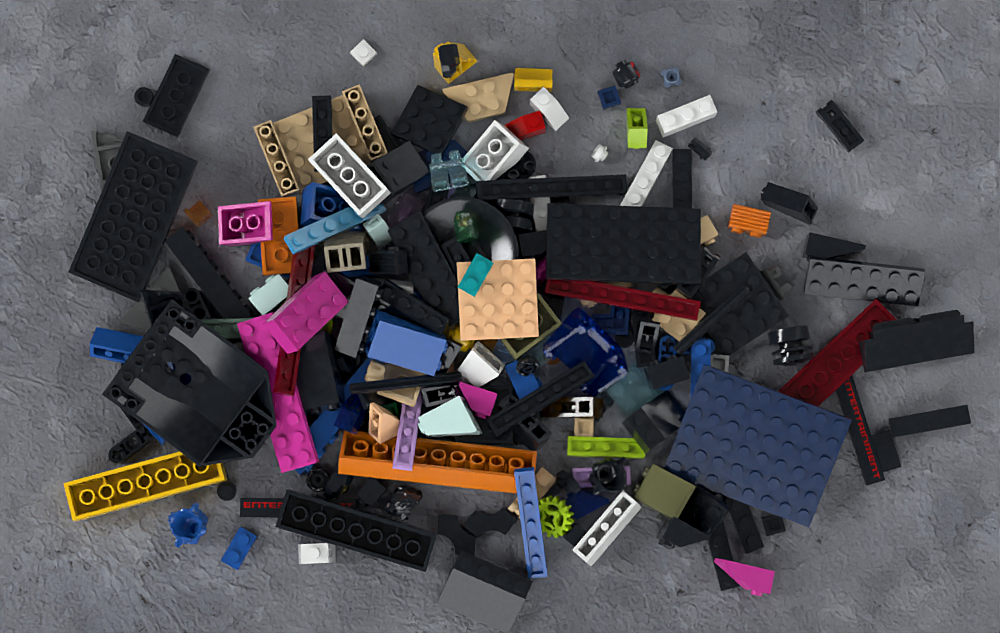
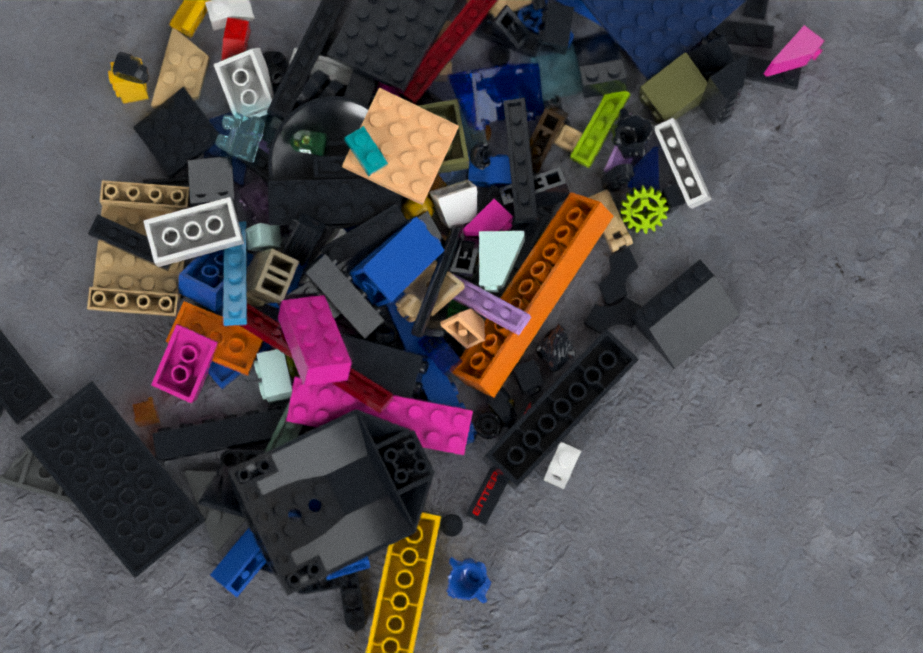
camera: 65 degrees left, 5 degrees down
(239, 548) = (517, 542): blue plate -> none
(363, 53) = (69, 165): white plate -> none
(531, 522) = (641, 229): plate -> none
(616, 322) = (480, 52): dark blue plate -> none

